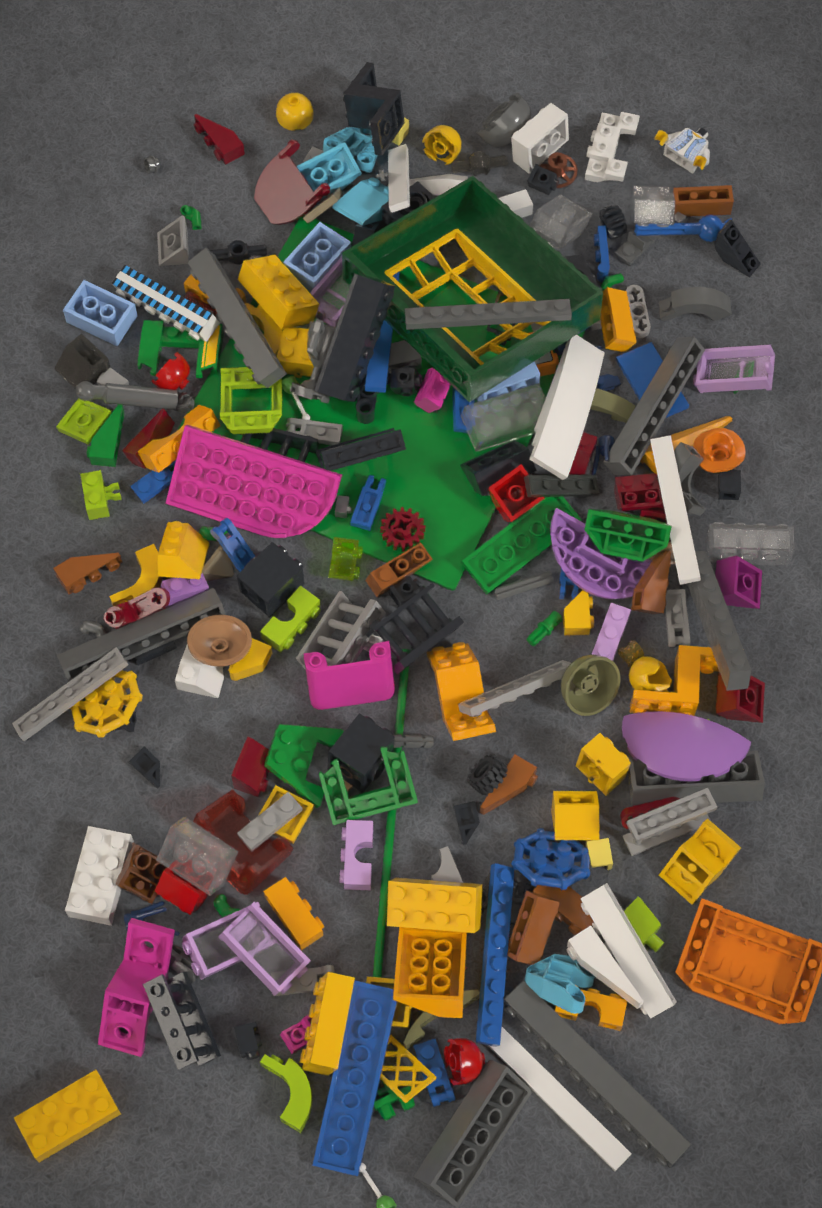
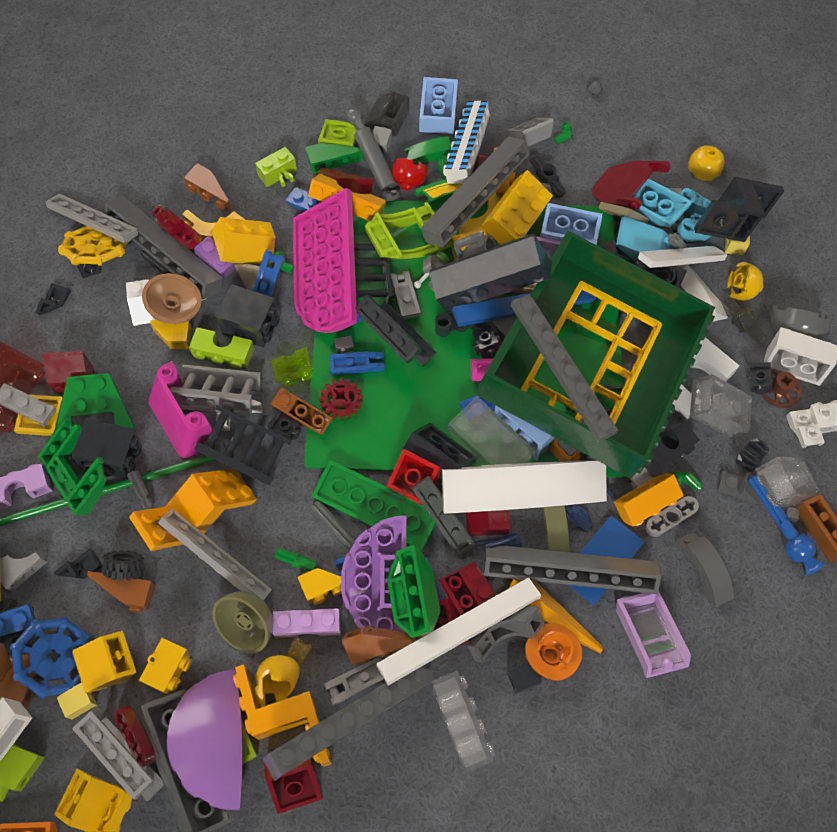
camera: 65 degrees right, 0 degrees up
(226, 142) = (645, 123): dark red slope -> none
(601, 254) = (712, 460): blue plate -> none
(735, 250) = (790, 582): black slope -> none
(739, 582) = (418, 729): magenta slope -> none

